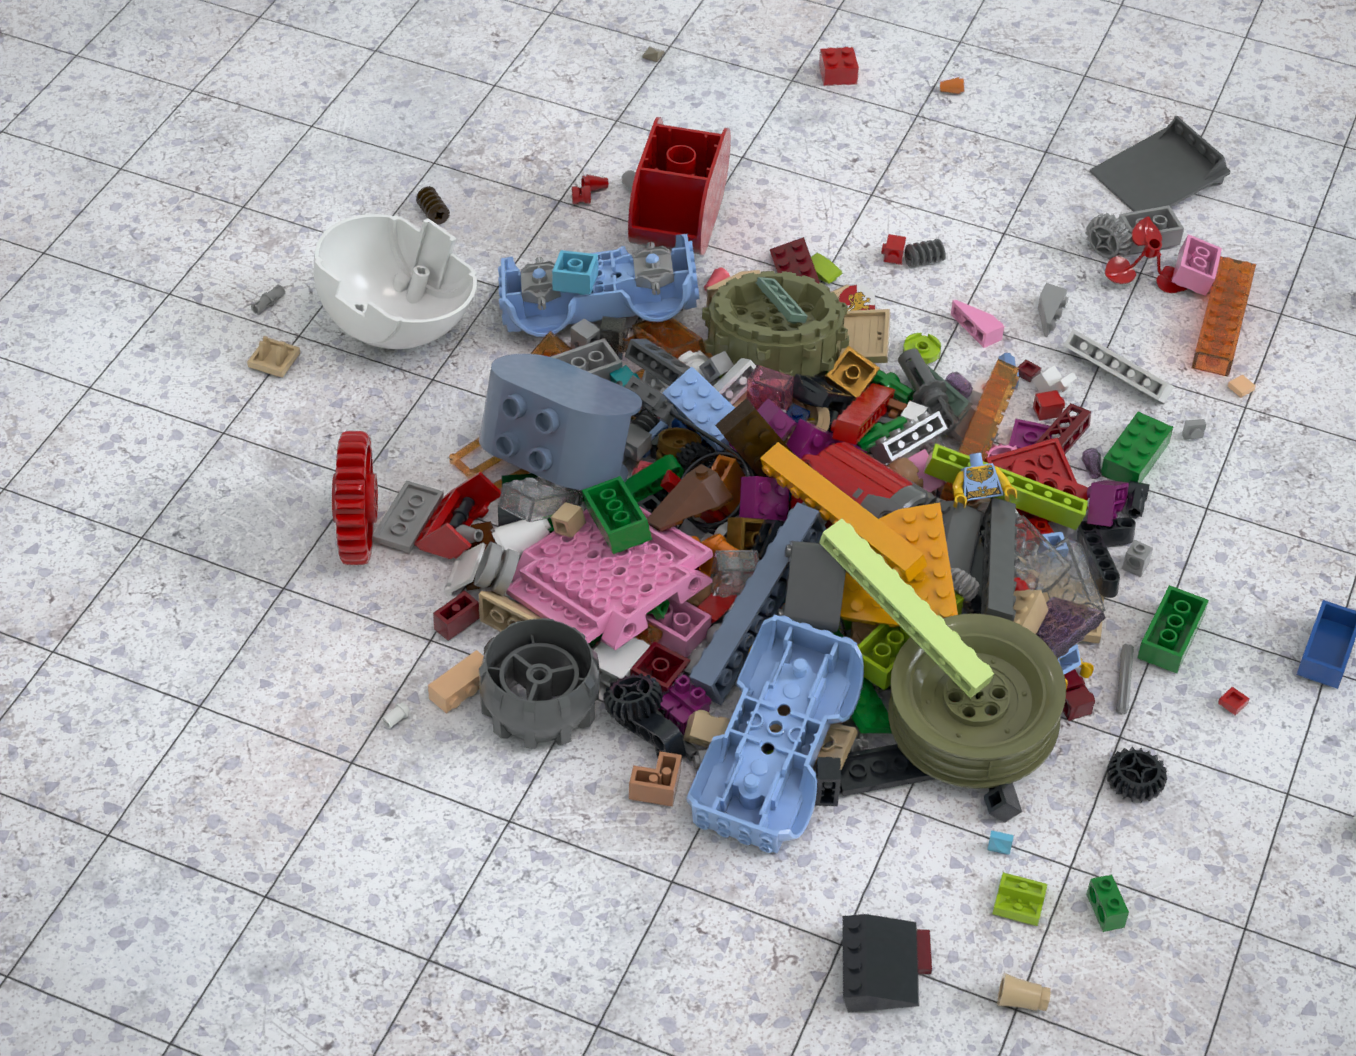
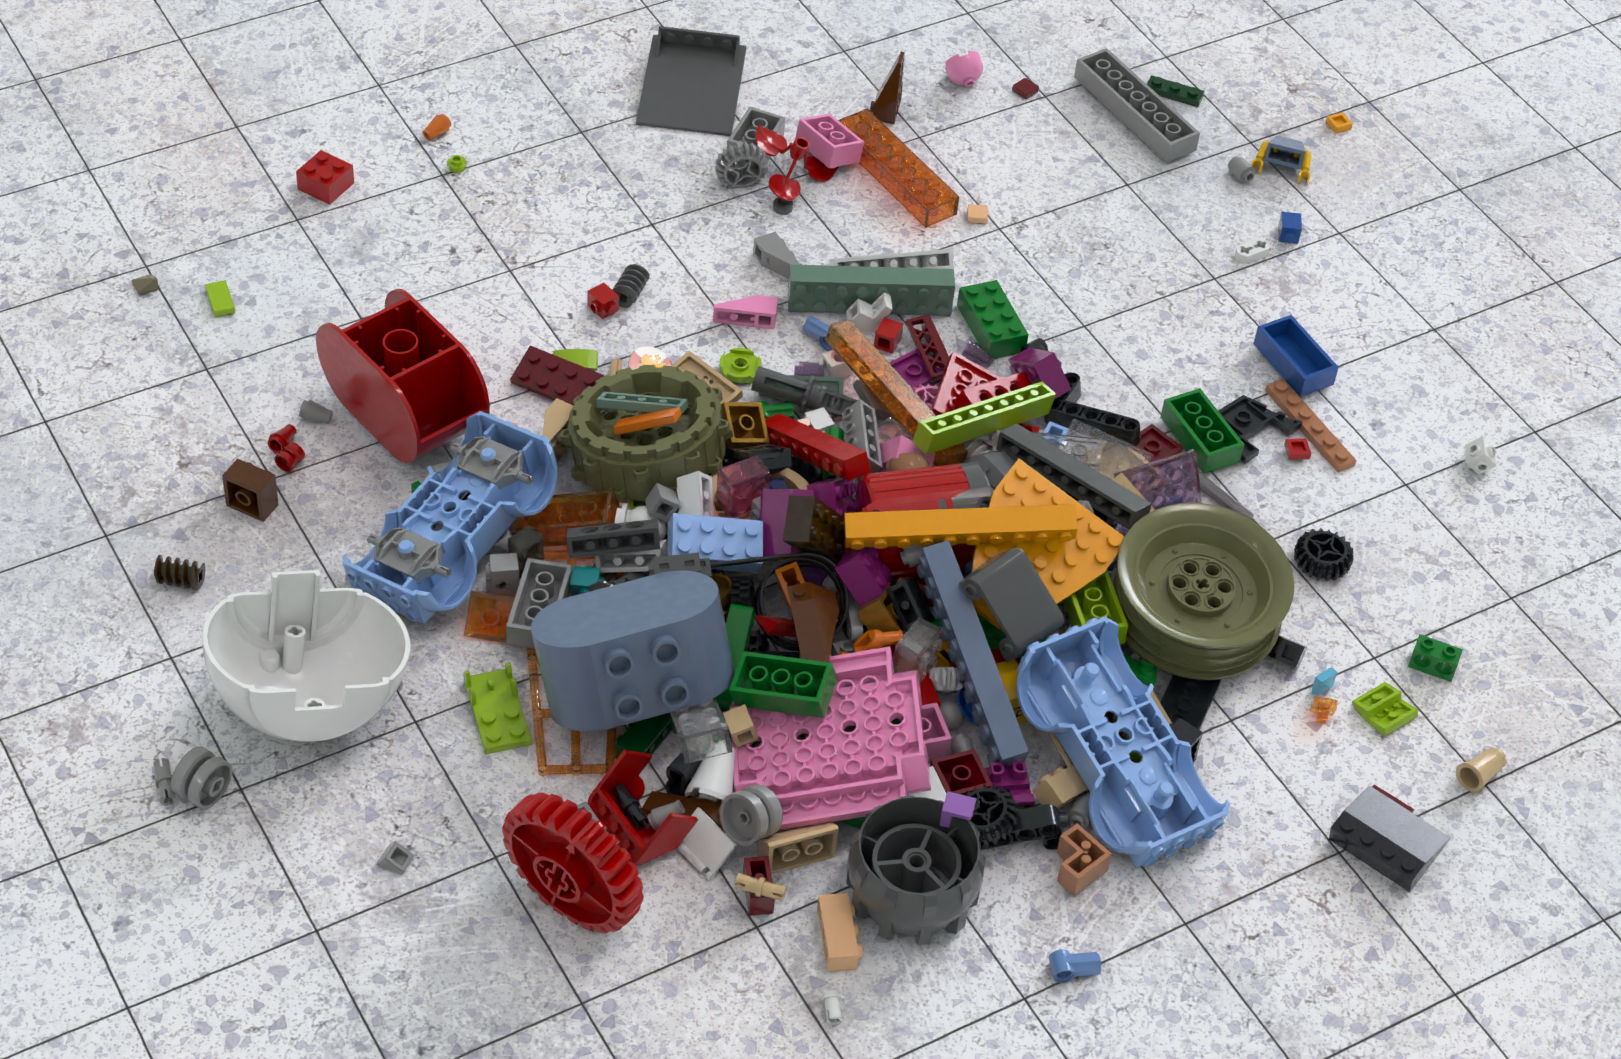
camera: 55 degrees left, 0 degrees up
(273, 357) = (257, 825): tan plate -> none
(277, 307) = (201, 777): none -> light grey wheel
(311, 433) = (395, 858): none -> light grey slope
(443, 610) = (760, 887): none -> tan pin
(467, 416) = (497, 710): none -> lime hinge
(529, 192) = (250, 490): none -> reddish brown brick
(557, 827) = (1067, 965): none -> medium blue piece
(575, 272) = (448, 517): medium azure brick -> none
(583, 655) = (957, 806): none -> medium lavender panel
(680, 89) = (220, 298): none -> lime tile
(767, 310) = (647, 420): none -> orange tile
(906, 608) = (1110, 556): yellowish green brick -> none
(933, 114) = (457, 163): none -> lime plate
(971, 856) = (1323, 708): none -> clear orange tile
(980, 482) = (985, 425): torso -> none
(1028, 370) = (830, 317): dark red tile -> none
(1095, 382) = (838, 287): none -> sand green brick
(1107, 285) = (782, 207): none -> dark grey tile
(1125, 613) = (1158, 443): none -> dark red plate
(1137, 558) = (1107, 398): light grey brick -> none
(1194, 429) = (1001, 271): light grey plate -> none
(1227, 652) = (1250, 417): none -> black wing
(1273, 698) = (1311, 426): none -> nougat plate
(1289, 265) = (890, 94): none -> reddish brown wedge

